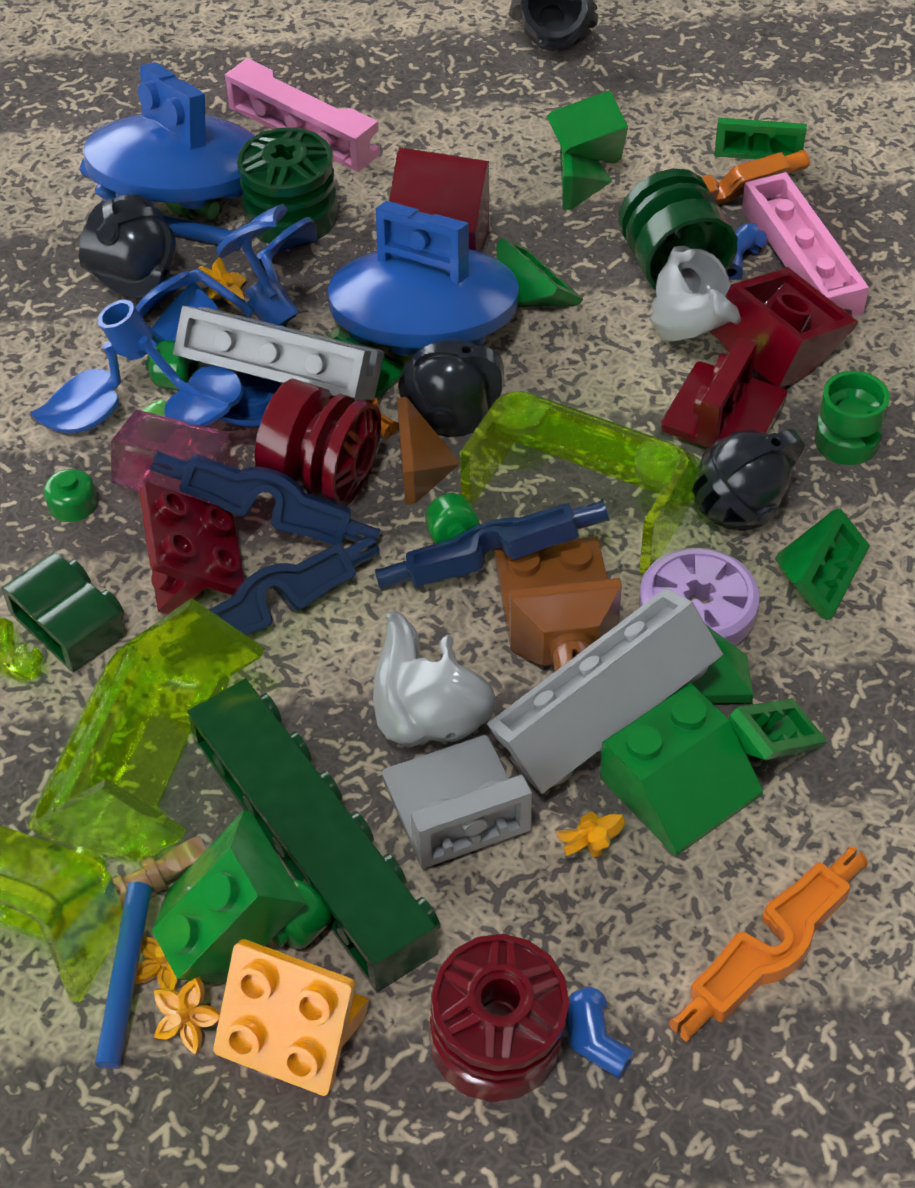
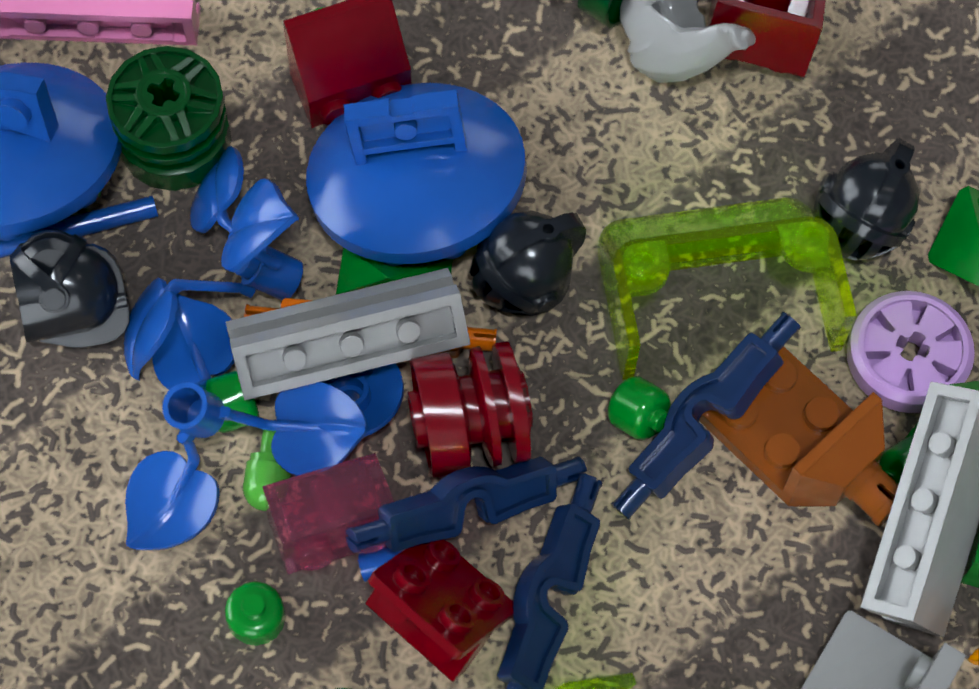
camera: 40 degrees left, 15 degrees up
(231, 281) = (187, 267): light orange plant -> none
(423, 453) = (548, 350): dark orange slope -> none
(426, 698) = (770, 620): light grey piece -> none
(535, 280) = (495, 79): green slope -> none
(723, 399) = (775, 126): dark red bracket -> none
(851, 417) = (902, 78): green wheel -> none

